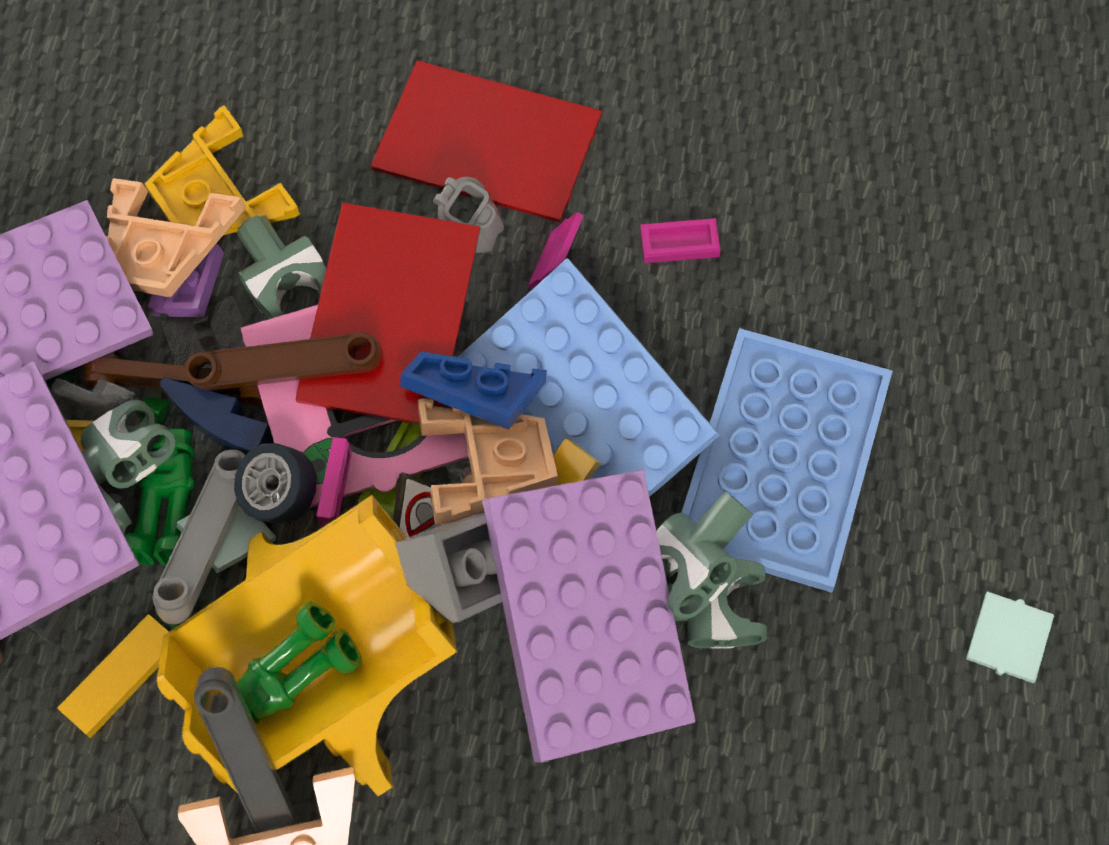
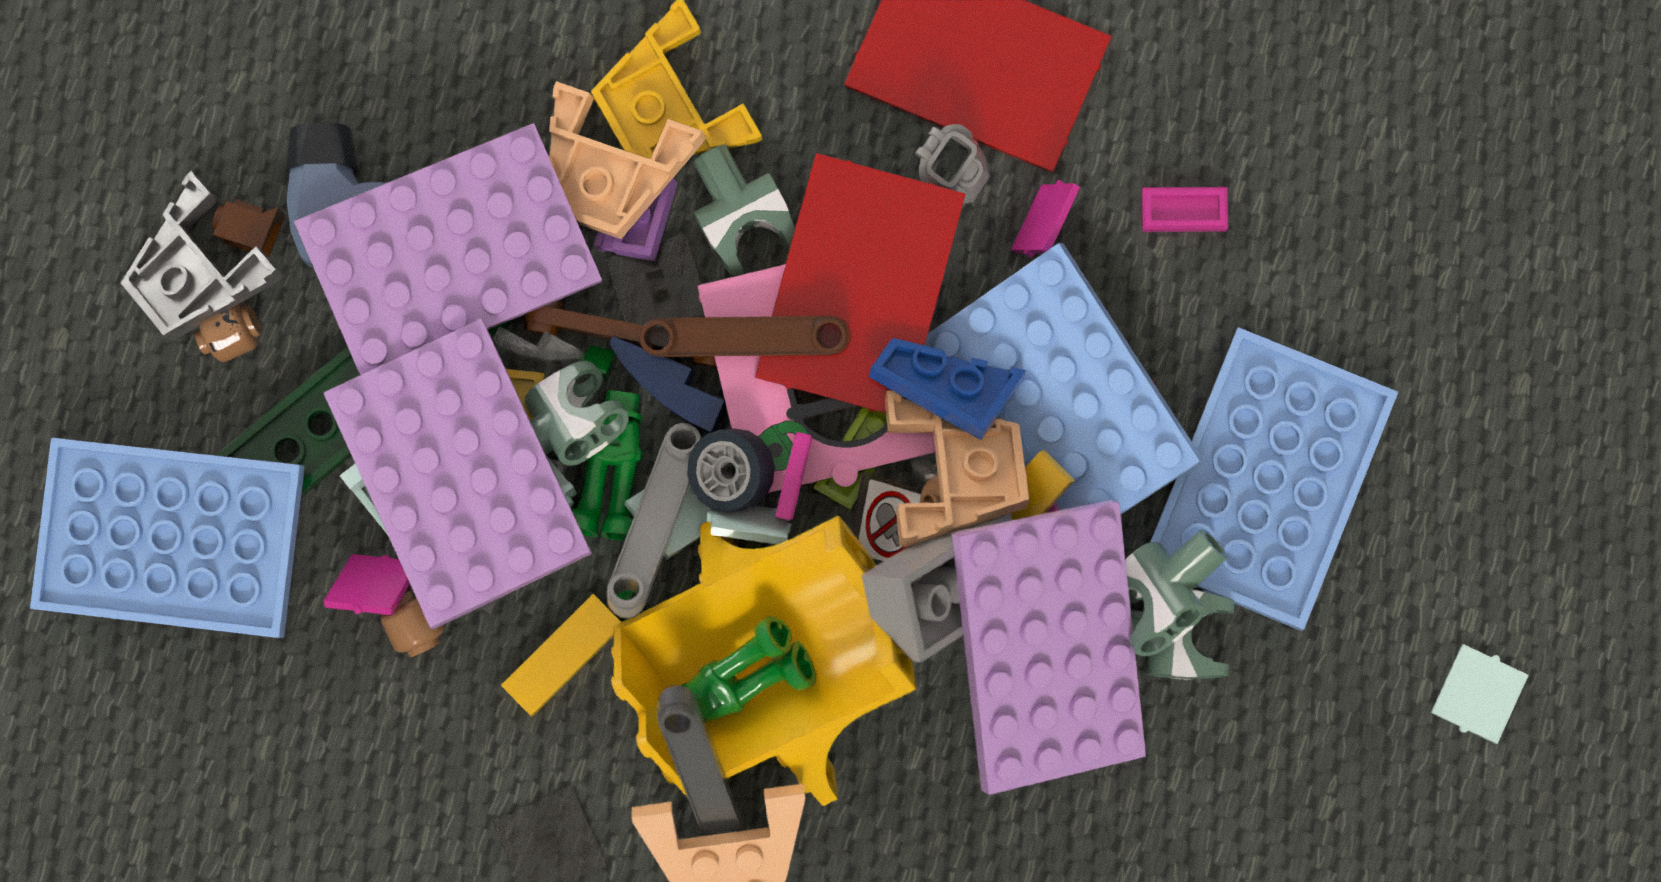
camera: 10 degrees right, 15 degrees up
(285, 531) = (750, 524): none -> light aqua piece

